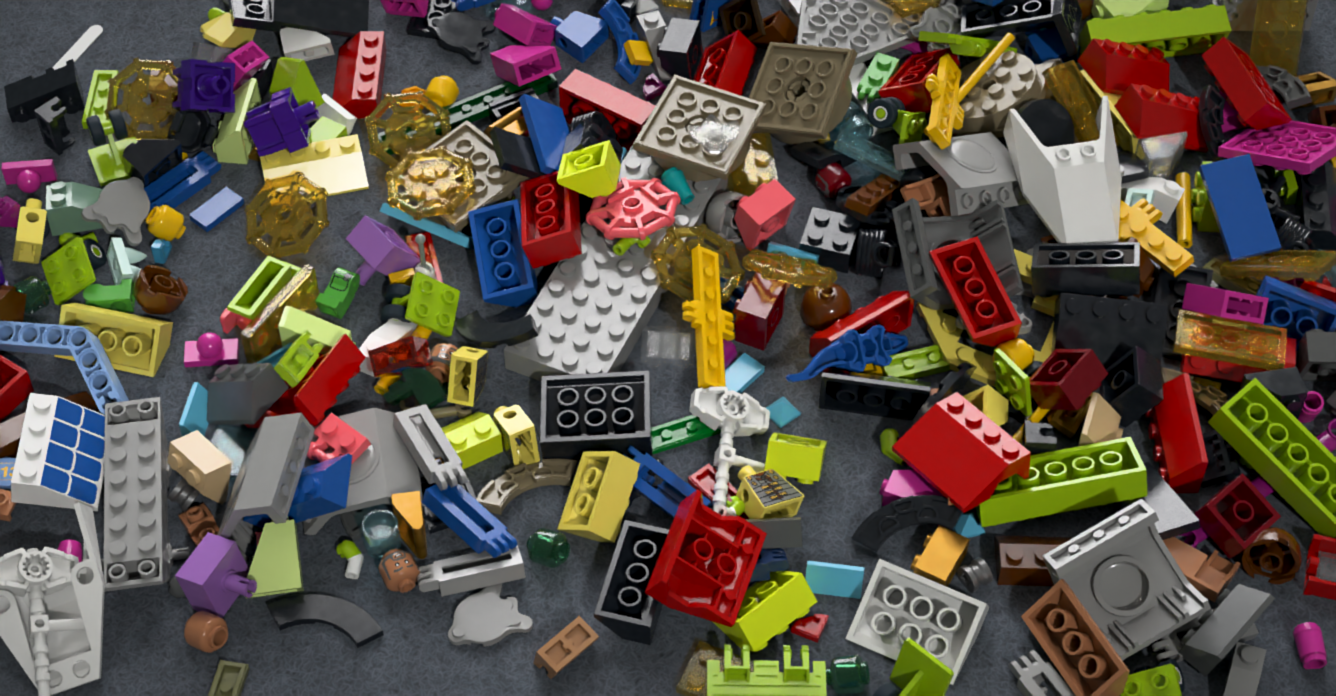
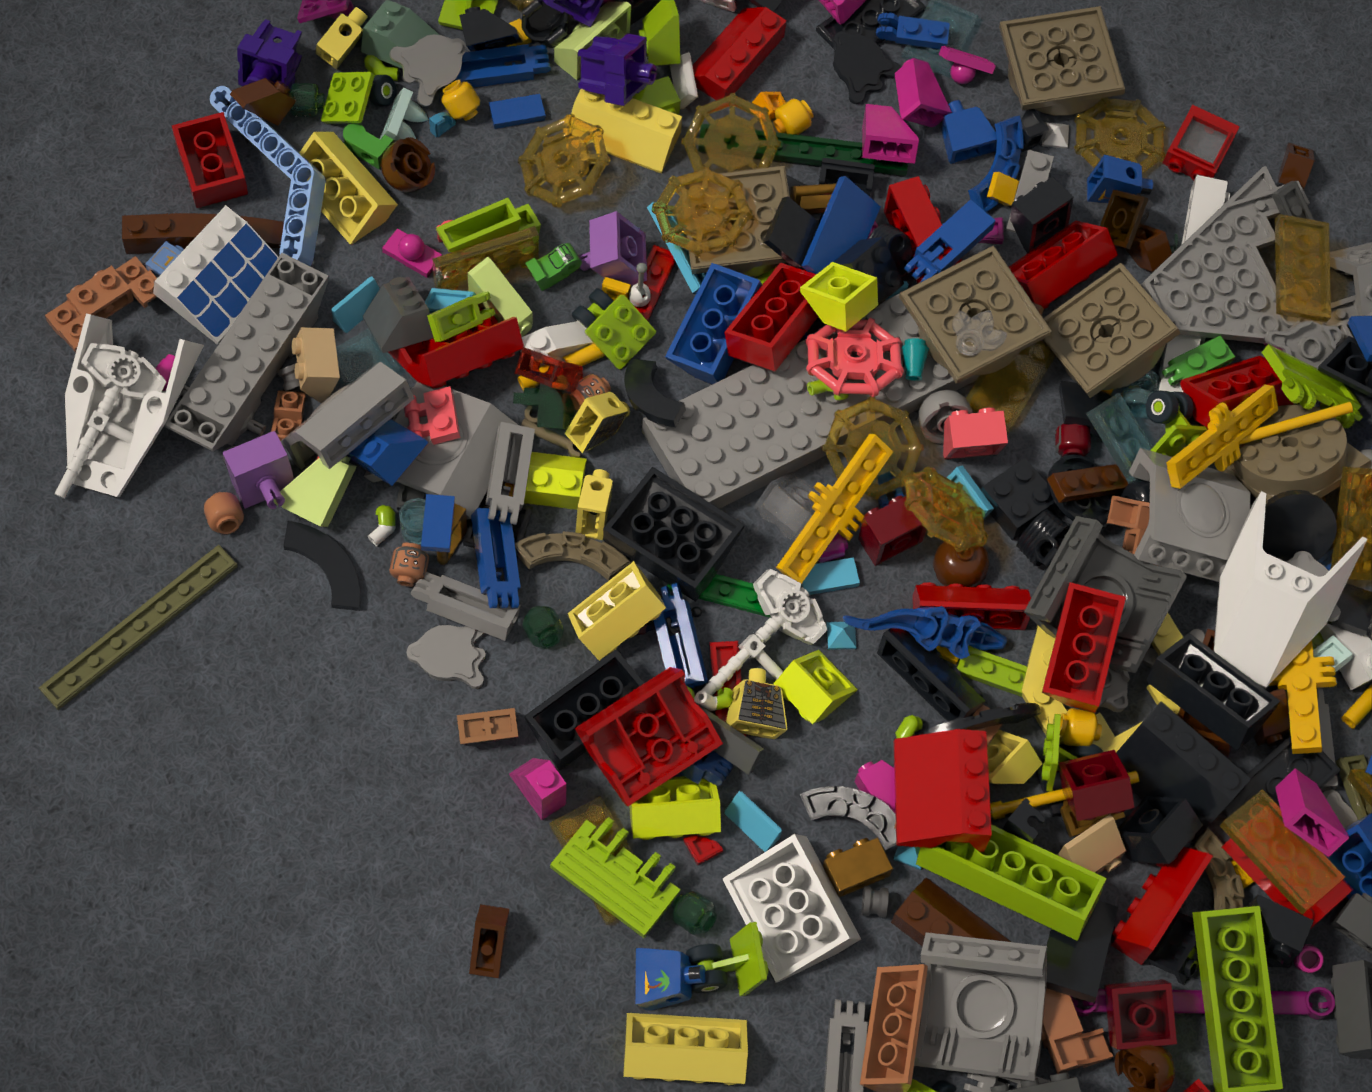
camera: 30 degrees right, 15 degrees up
(406, 513) = (437, 523): none -> blue tile
(640, 80) = (959, 232): none -> blue hinge
(648, 658) = (541, 786): none -> dark pink slope

